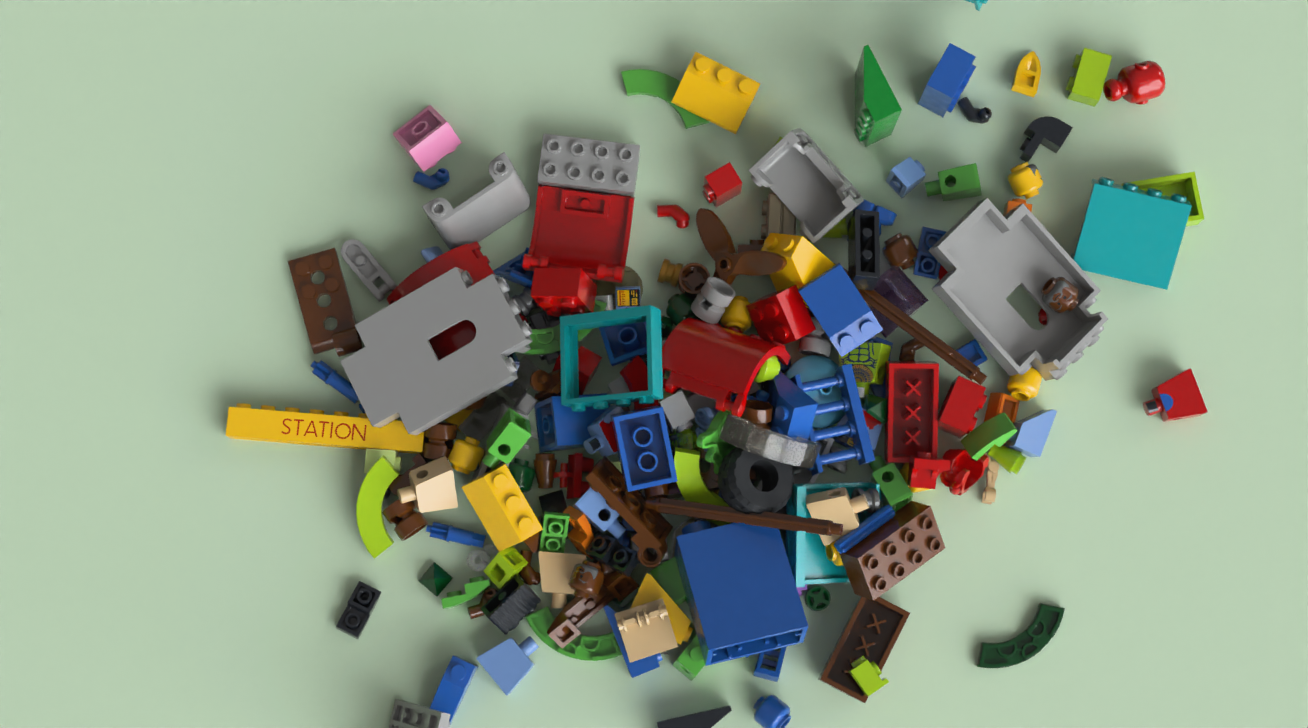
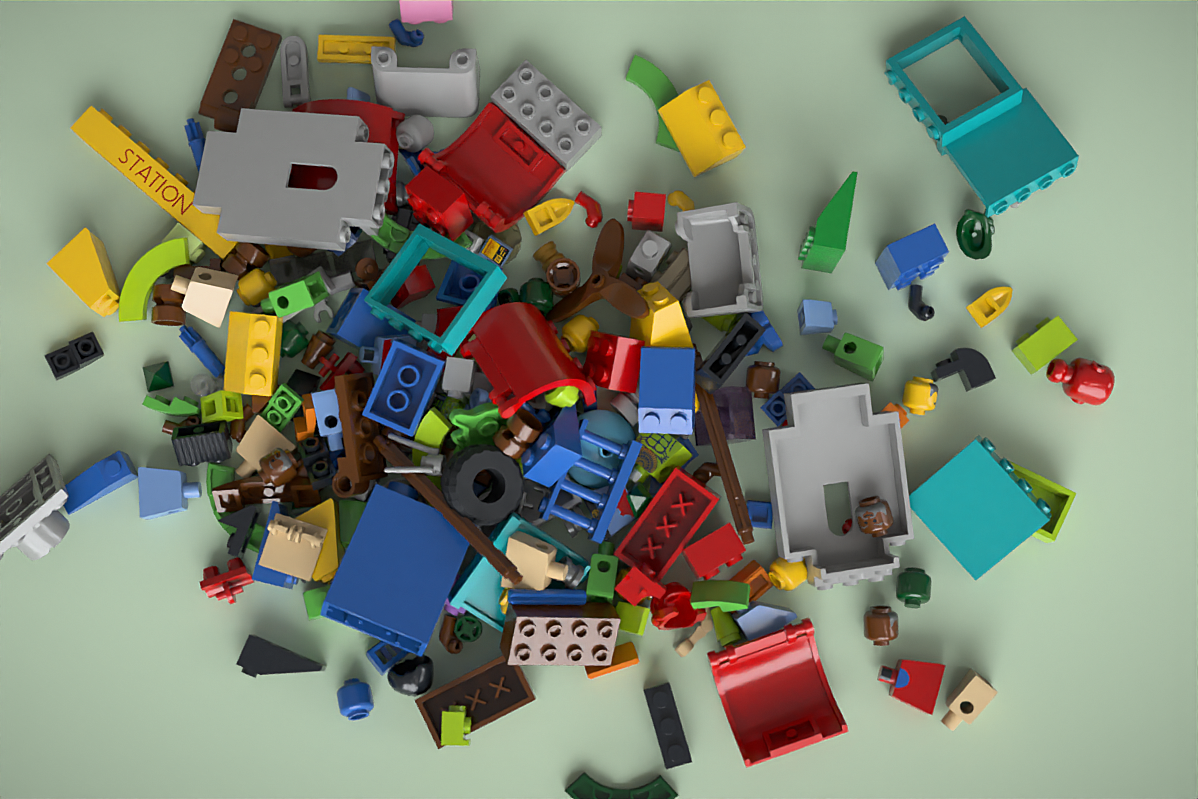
camera: 35 degrees right, 0 degrees up
(324, 538) = (88, 272): none -> yellow slope
(399, 218) = (350, 48): none -> yellow plate
(498, 250) = (415, 133): none -> light grey head
(589, 640) = (245, 523): none -> black slope
(609, 698) = (228, 583): none -> red hips
(645, 241) = (548, 214): none -> yellow plate
(705, 493) = (431, 465): none -> light grey plant
(712, 300) = (563, 304): light grey wheel -> none
(741, 159) = (680, 199): none -> yellow arm
(746, 219) = (648, 256): none -> light grey torso
(768, 443) = (514, 462): clear smoke slope -> none
(802, 664) = (412, 676): none -> black hair
(813, 618) = (448, 637): none -> reddish brown arm
(939, 499) = (632, 618): none -> lime slope
(950, 534) = (623, 656): none -> orange slope
(977, 29) = (975, 234): none -> dark green hat
(1019, 562) = (667, 725): none -> black brick
(1082, 480) = (776, 693): none -> red hinge
(1121, 373) = (880, 625): none -> reddish brown head
(1124, 327) = (913, 587): none -> dark green head
(1223, 372) = (972, 689): none -> tan torso

